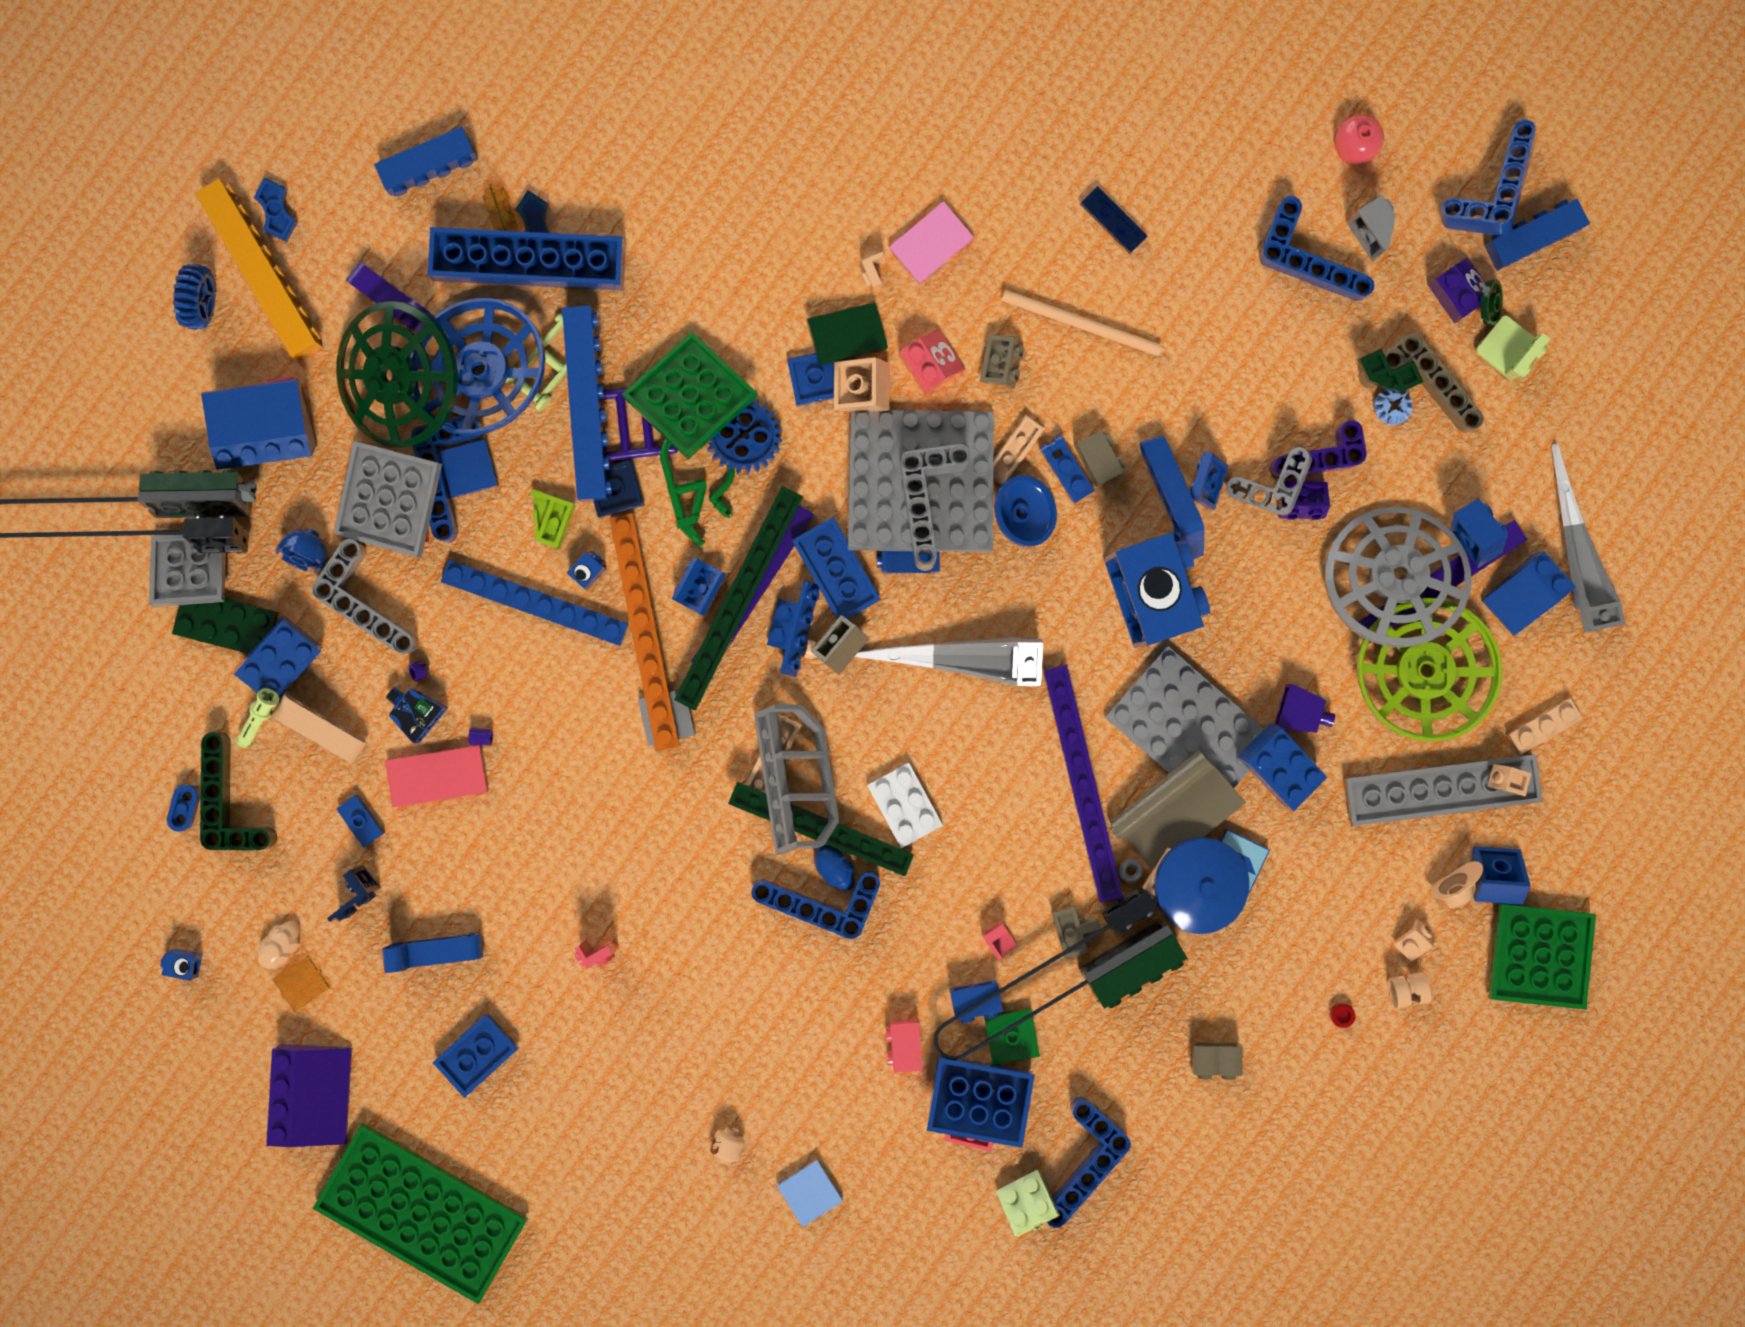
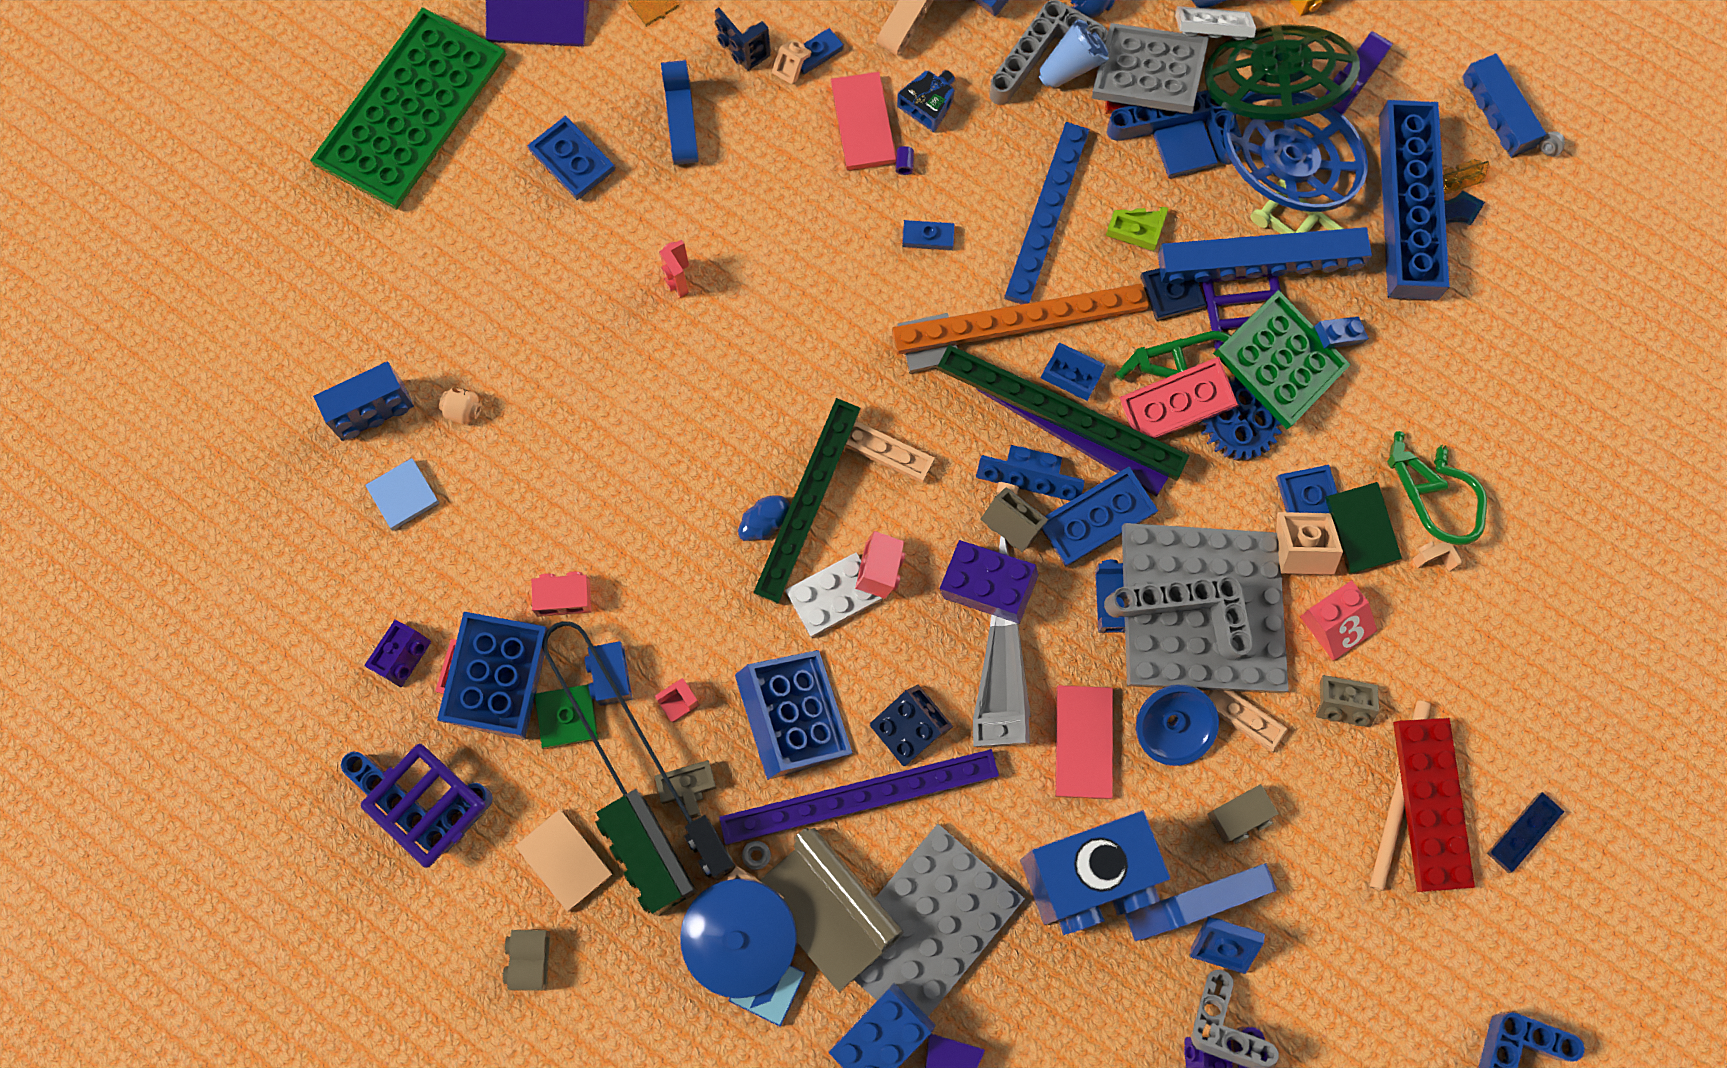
camera: 90 degrees right, 15 degrees down
(336, 432) = (1215, 22): none -> white plate
(373, 846) = (790, 60): none -> light nougat bracket
(375, 571) = (1073, 56): none -> light blue cone
(418, 671) = (973, 102): dark purple hinge -> none
(467, 119) = (1552, 143): none -> light grey plate
(557, 715) = (928, 235): none -> blue plate
(587, 569) = (1085, 261): blue brick -> none
(661, 337) = (1341, 332): none -> blue plate
(727, 1233) = (364, 401): none -> blue brick
(729, 491) = (1180, 400): none -> coral tile
(776, 782) = (872, 446): light grey plate -> none
(782, 295) = (1400, 459): none -> green piece
(821, 908) = (718, 501): blue beam -> none
(882, 764) = (880, 565): none -> coral brick
(898, 669) = (989, 581): none -> dark purple brick
(931, 243) = (1475, 621): bright pink tile -> none
(956, 1186) = (398, 653): none -> dark purple bracket
(1011, 840) = (792, 713): none -> blue slope
(1021, 738) = (910, 724): none -> dark blue bracket
(1027, 1203) = (371, 731): yellowish green plate -> none
(1035, 590) = (1084, 742): none -> coral tile
(1063, 1144) = (457, 788): none -> dark purple bar
(1067, 470) = (1225, 778): blue plate -> none
(1091, 296) = (1433, 805): none -> red plate
(1134, 1033) = (564, 860): none -> light nougat tile

